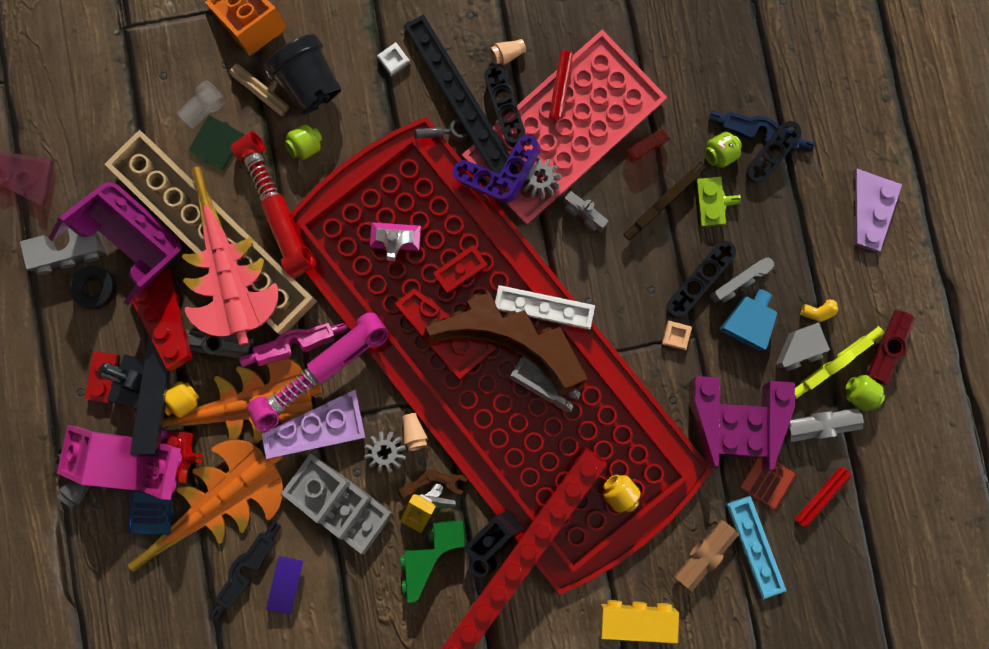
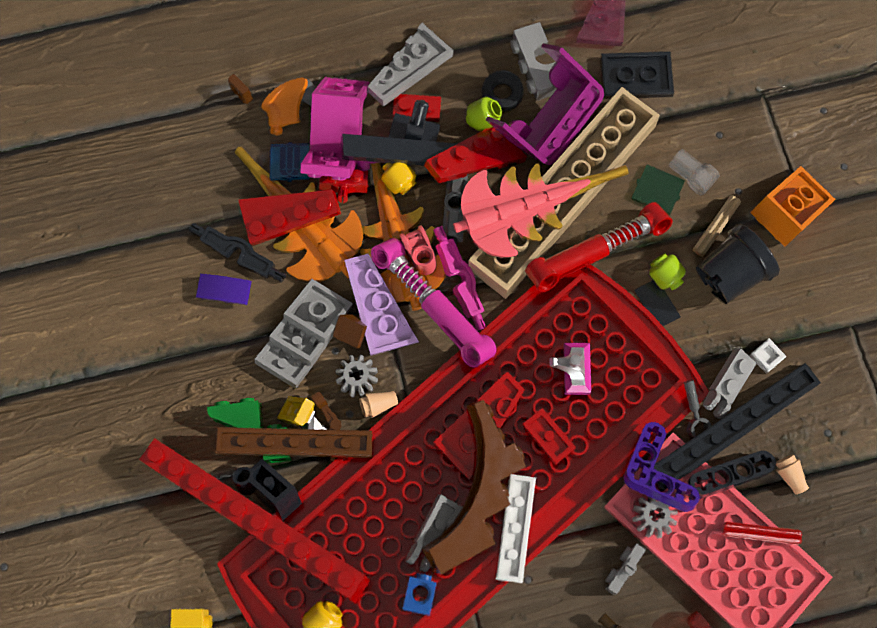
camera: 90 degrees right, 10 degrees down
(53, 380) = (416, 60): none -> light grey wing
(62, 564) = (240, 89): none -> reddish brown tile
(85, 517) = (284, 104): none -> orange arm
(87, 148) = (638, 73): none -> black tile
(115, 311) = (480, 110): none -> lime head
(209, 519) = (282, 214): none -> red wing
(258, 384) = (417, 247): none -> coral piece
(332, 155) = (657, 303): none -> black sticker
(338, 456) = (350, 330): none -> reddish brown slope
(418, 97) = (729, 382): none -> light grey hinge
(449, 516) = (293, 442): none -> reddish brown tile
(613, 400) = (423, 607): none -> blue brick

